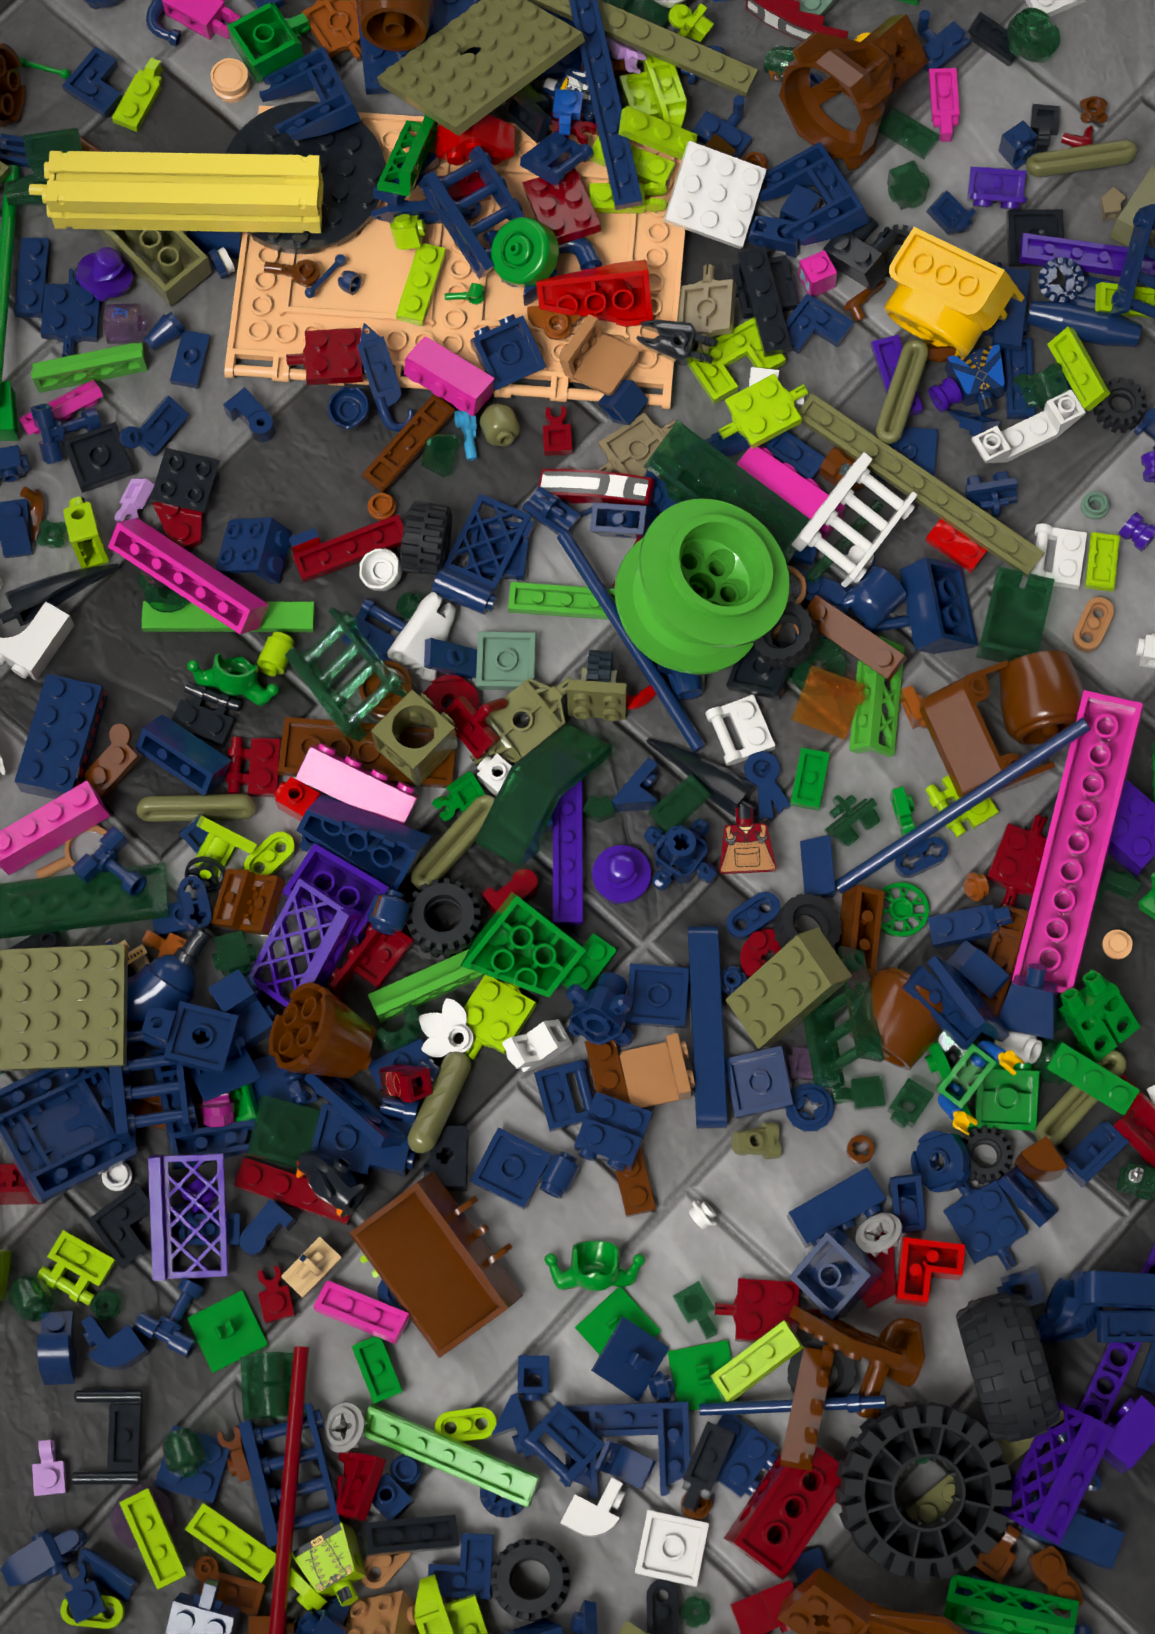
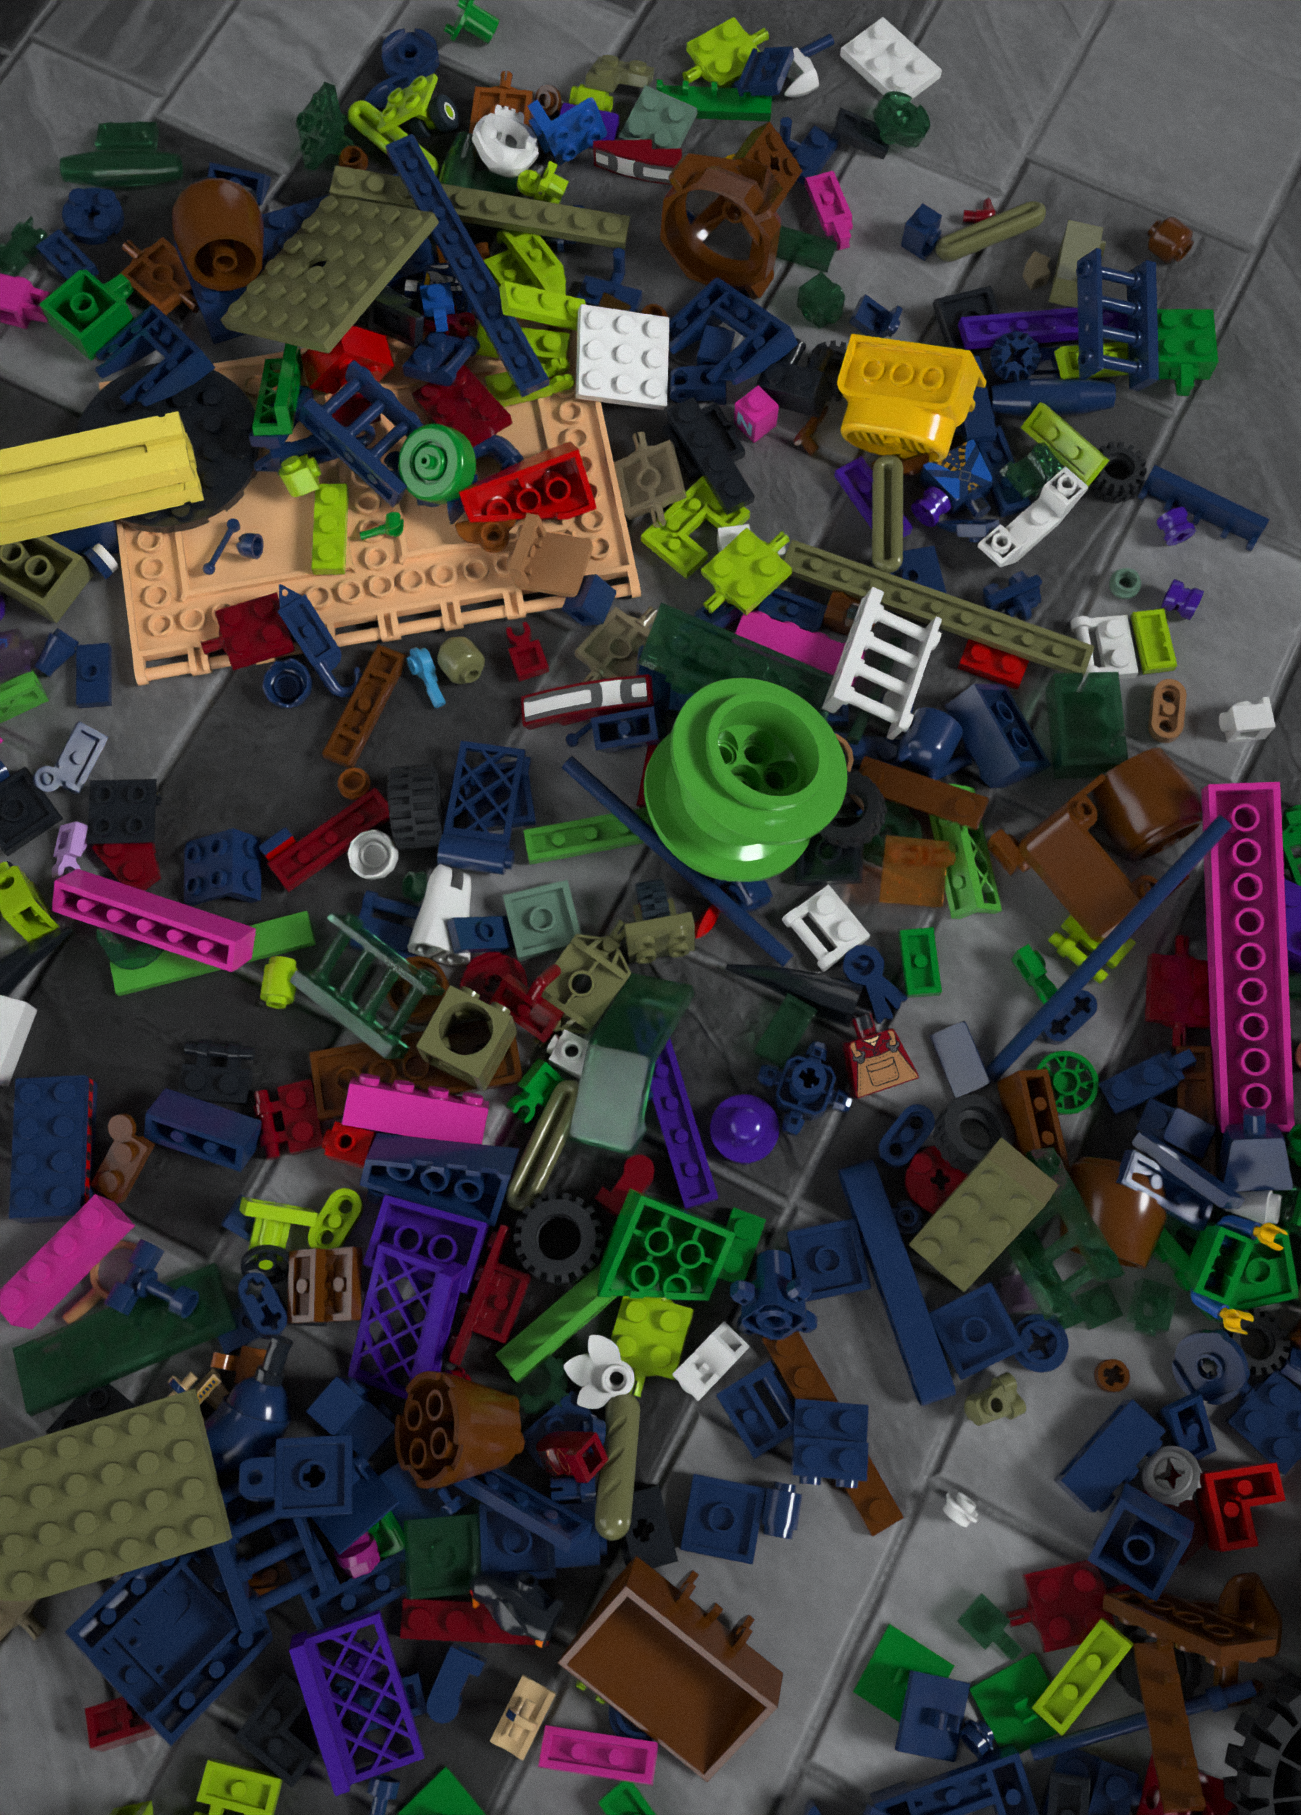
camera: 20 degrees left, 0 degrees up
(118, 1177) = (259, 1671): white plate -> none
(190, 806) = (227, 1187): olive piece -> none
(230, 80) = (60, 364): light nougat wheel -> none
(233, 953) = (325, 1353): clear green brick -> none
(234, 678) = (238, 1023): green piece -> none
(252, 414) = (179, 717): dark blue leg -> none
(276, 1300) = (491, 1768): dark red plate -> none
(303, 272) = (196, 548): reddish brown plate -> none
(388, 912) = (495, 1255): dark blue head -> none
(440, 453) = (403, 707): clear green plate -> none
(448, 376) = (390, 620): dark pink brick -> none
(507, 351) = (447, 577): dark blue plate -> none
(529, 1366) = (830, 1792): dark blue brick -> none
(551, 511) = (545, 740): dark blue hips -> none
(594, 1267) = (856, 1612): green piece -> none
(598, 809) = (697, 1060): clear green piece -> none
(624, 52) = (485, 234): lavender plate -> none
(632, 795) = (731, 1034): dark blue slope -> none
(657, 1073) = (857, 1353): medium nougat bracket -> none
(676, 341) = (629, 520): black hinge -> none
(777, 60) = (648, 207): clear green head -> none
(816, 317) = (770, 460): dark blue plate -> none
(862, 811) = (975, 991): clear green hips -> none
(976, 886) = (1140, 1033): dark orange plate -> none
(996, 186) = (914, 279): dark purple bracket -> none
(1044, 122) = (942, 200): black plate -> none
(1095, 103) = (986, 180): reddish brown plate -> none

